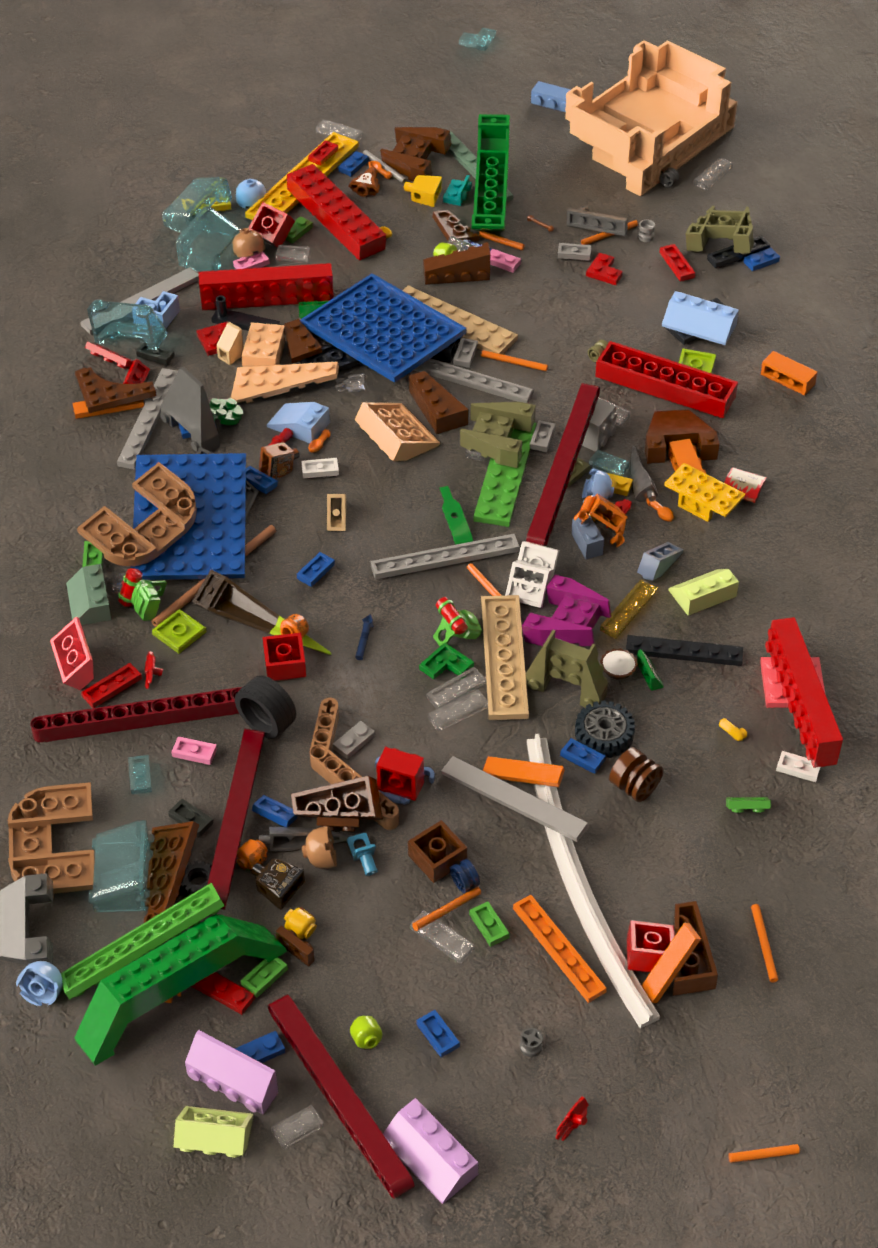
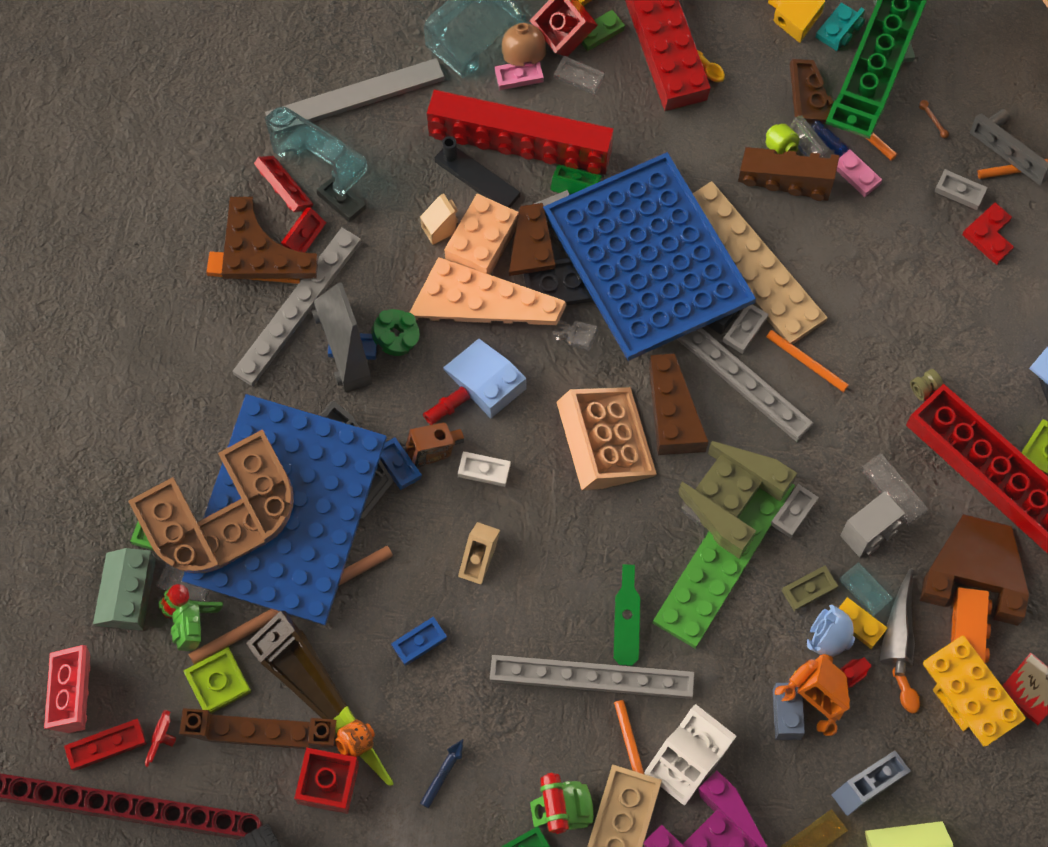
camera: 20 degrees right, 20 degrees up
(165, 306) = (367, 132): light blue brick -> none
(210, 336) = (426, 186): red plate -> none
(220, 649) = (257, 731): none -> reddish brown slope
(317, 444) = (495, 424): orange piece -> none
(563, 465) = (796, 590): dark red beam -> none

